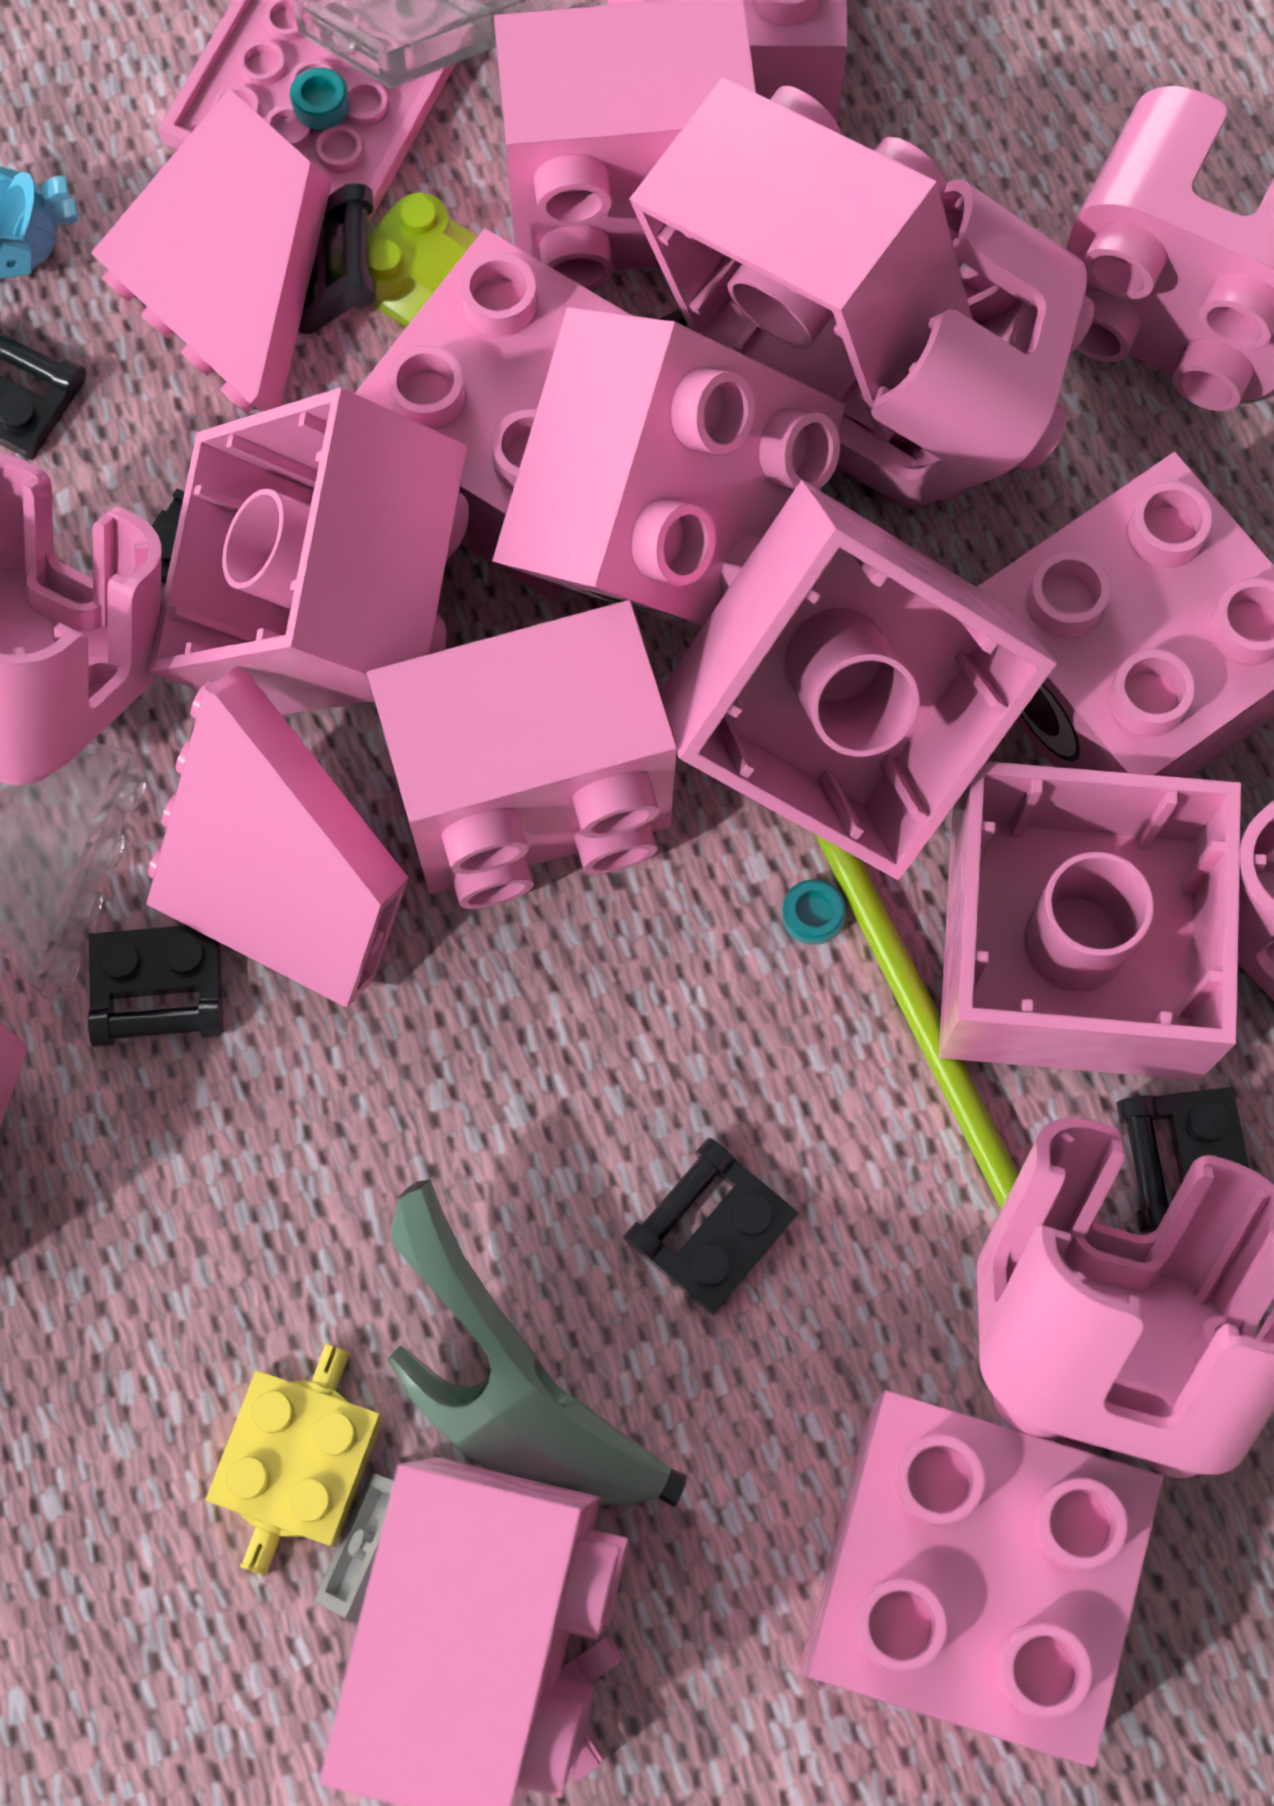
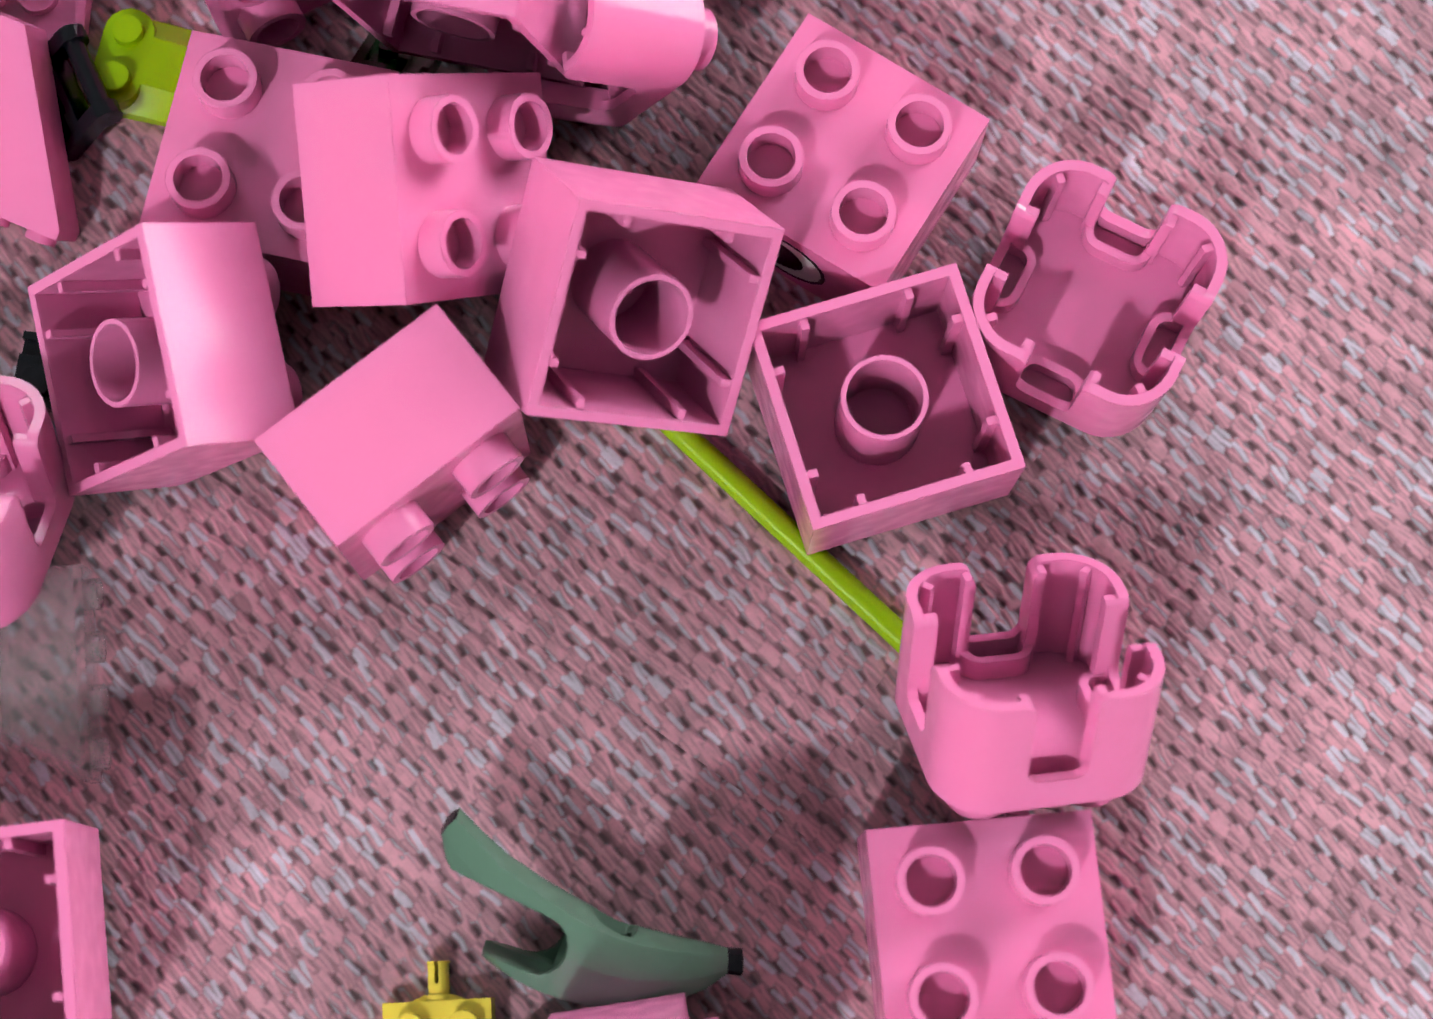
camera: 25 degrees left, 5 degrees up
(150, 965) = (168, 723): black plate -> none
(272, 849) = (228, 599): bright pink slope -> none
(727, 1241) = (701, 759): black plate -> none
(813, 911) = (668, 477): teal tile -> none
(1199, 1126) = (1025, 532): black plate -> none

